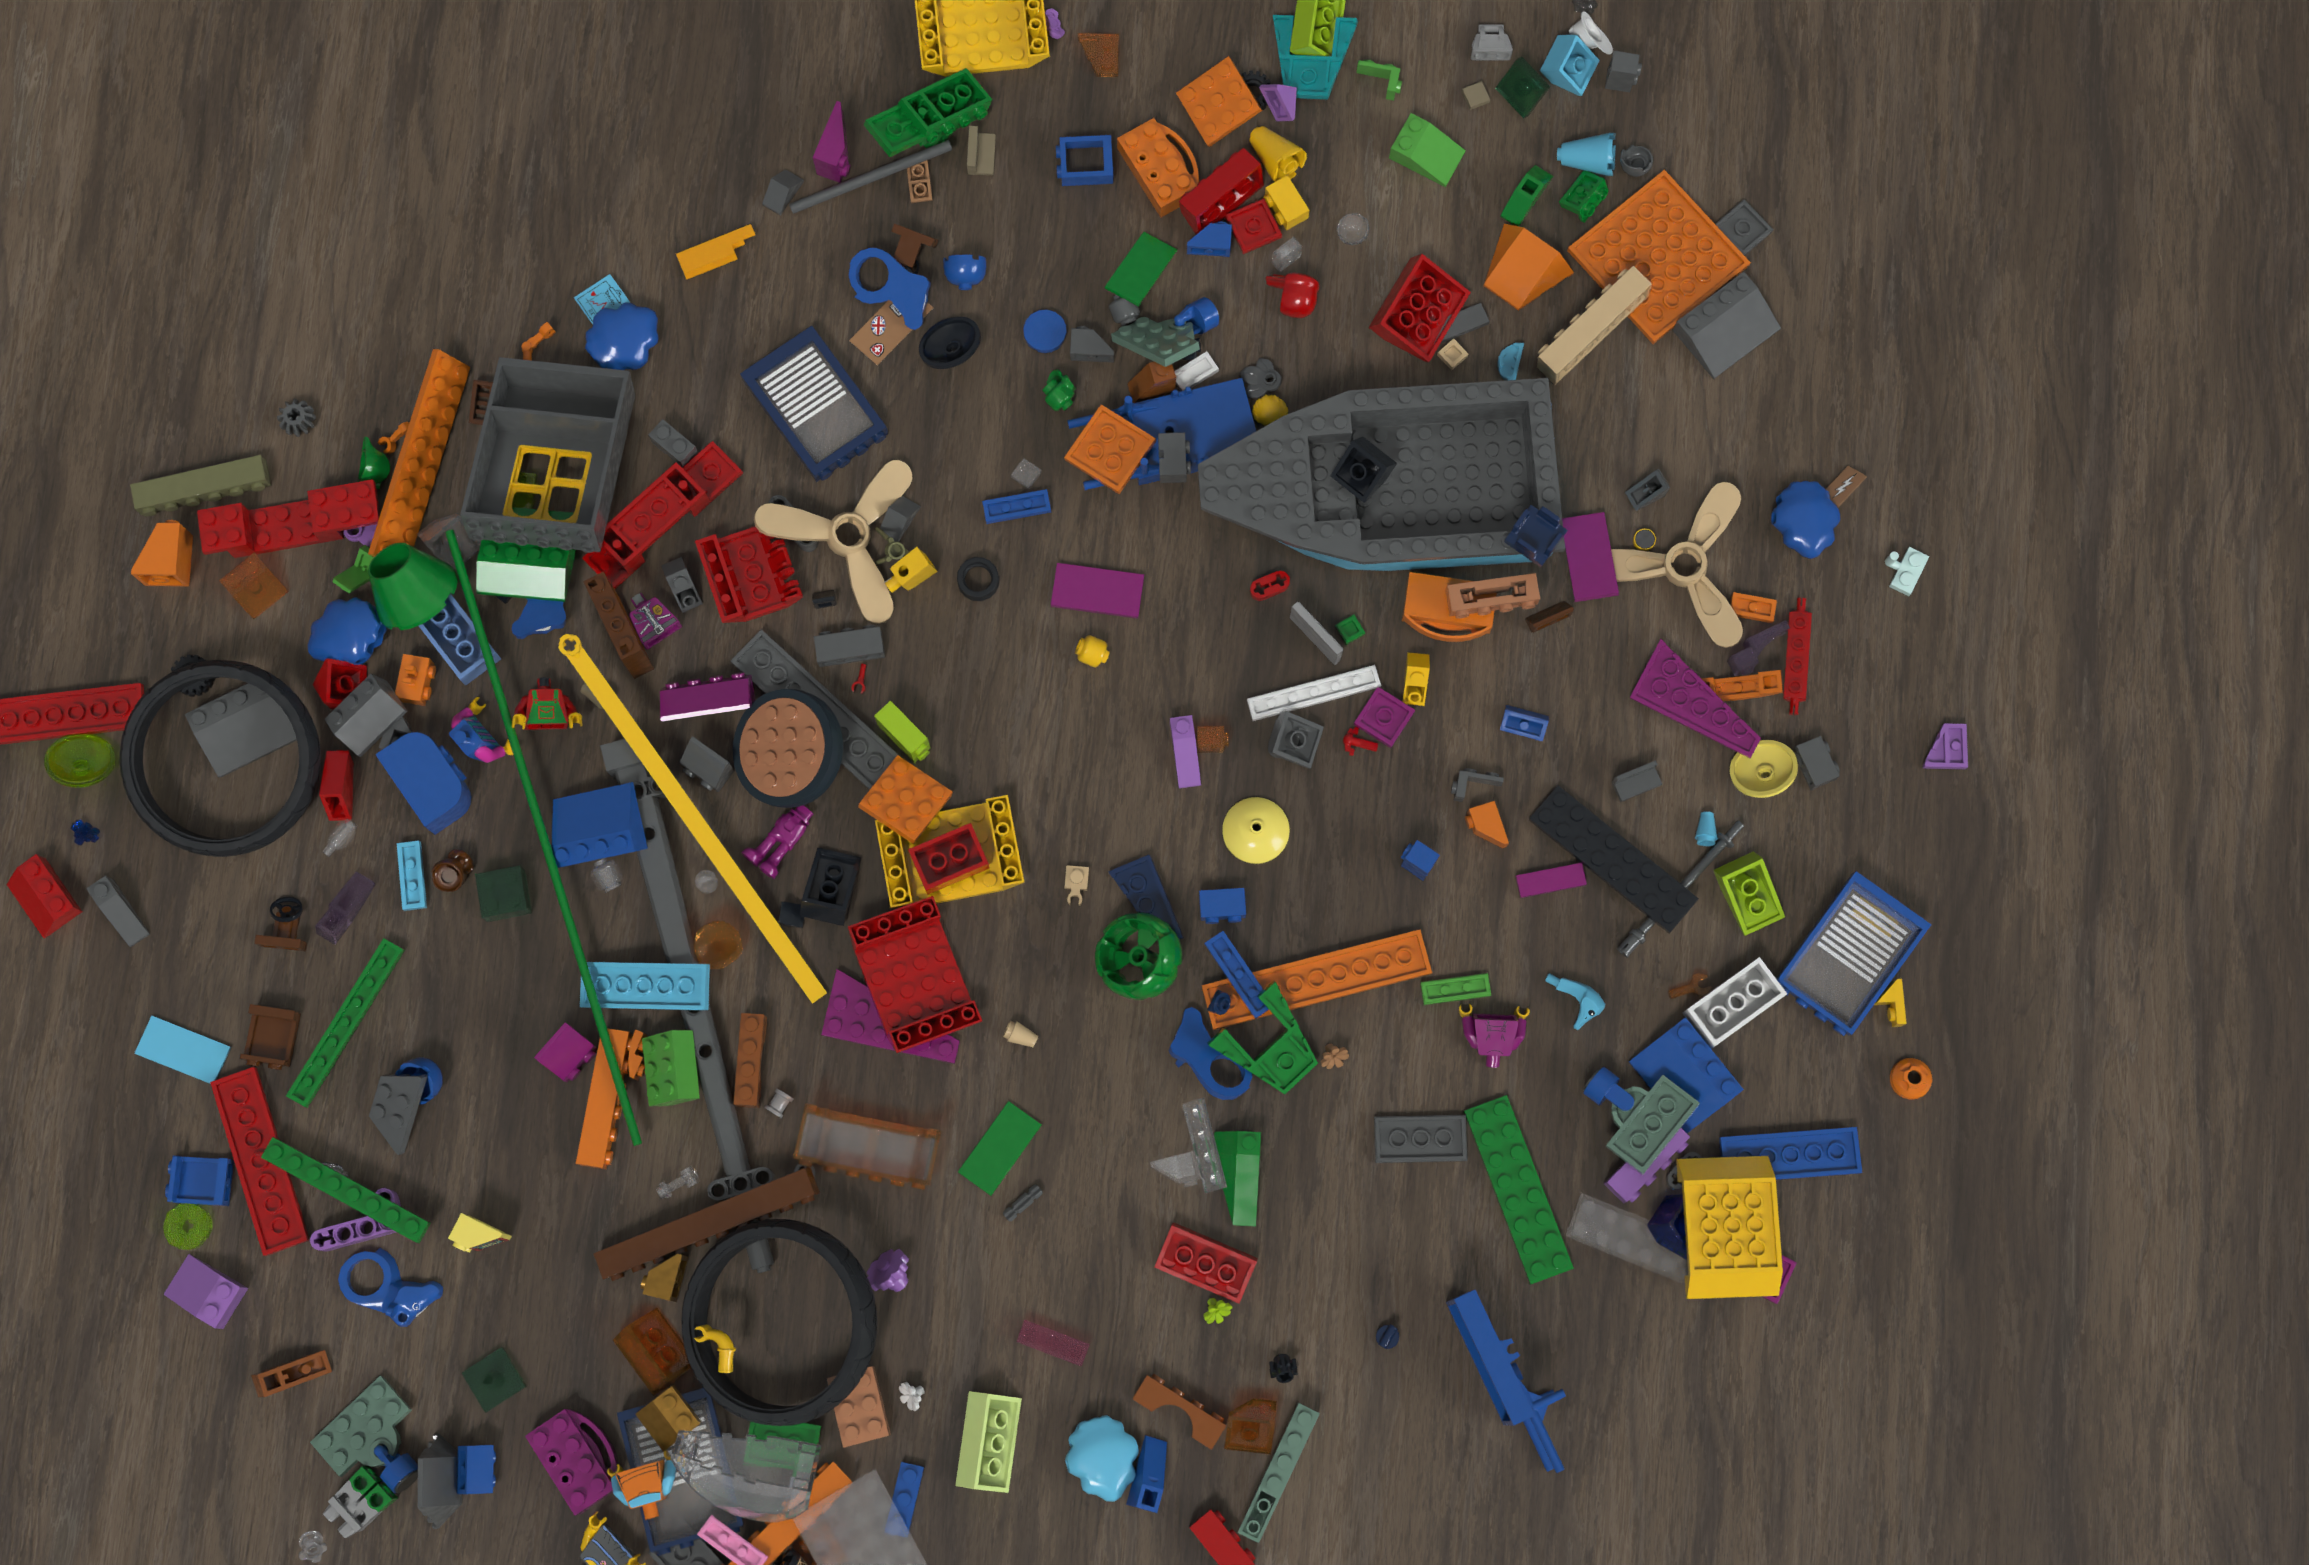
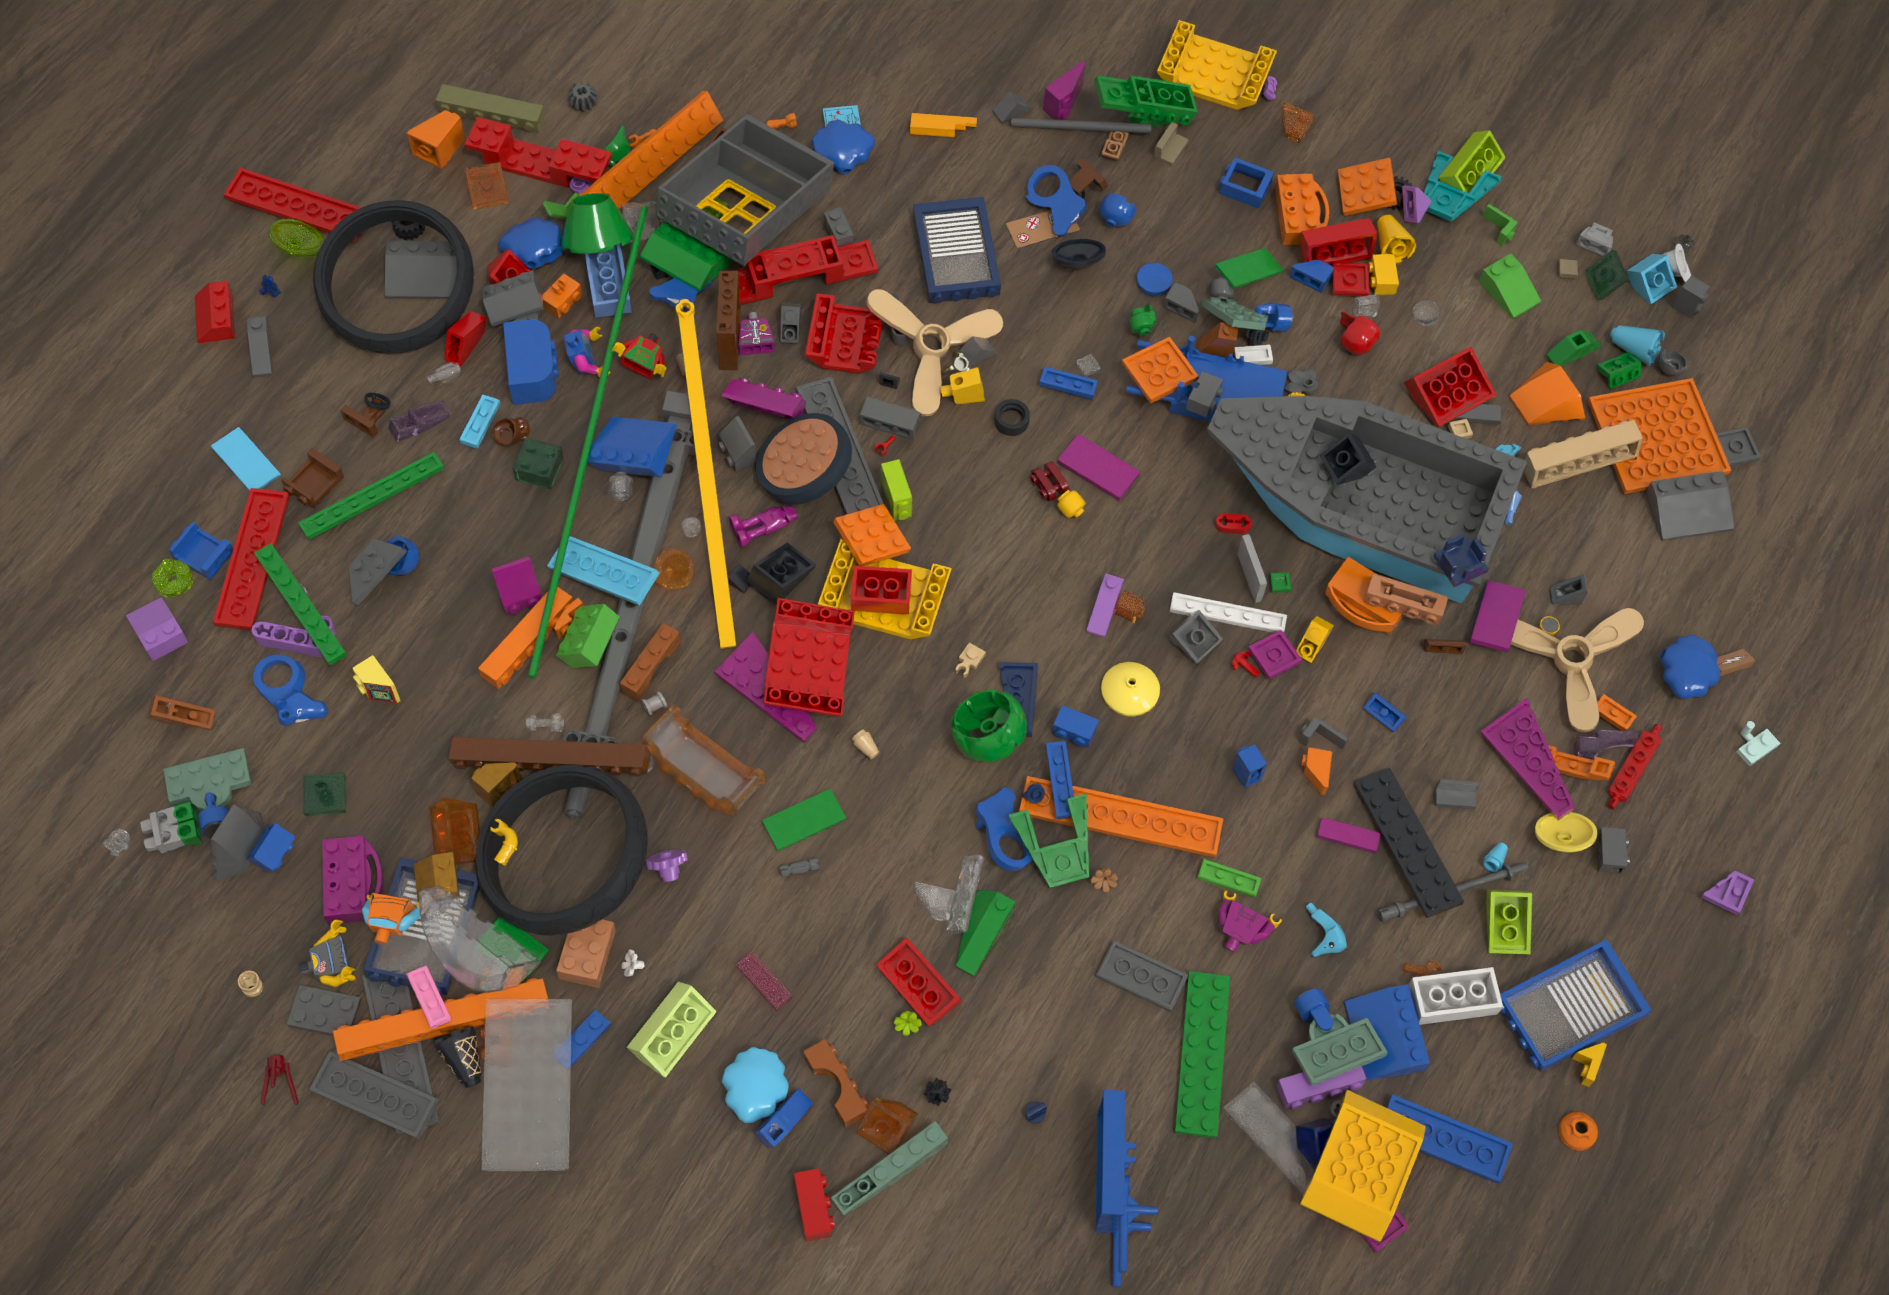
camera: 25 degrees right, 15 degrees down
(1043, 637) = (1045, 487): none -> dark red brick

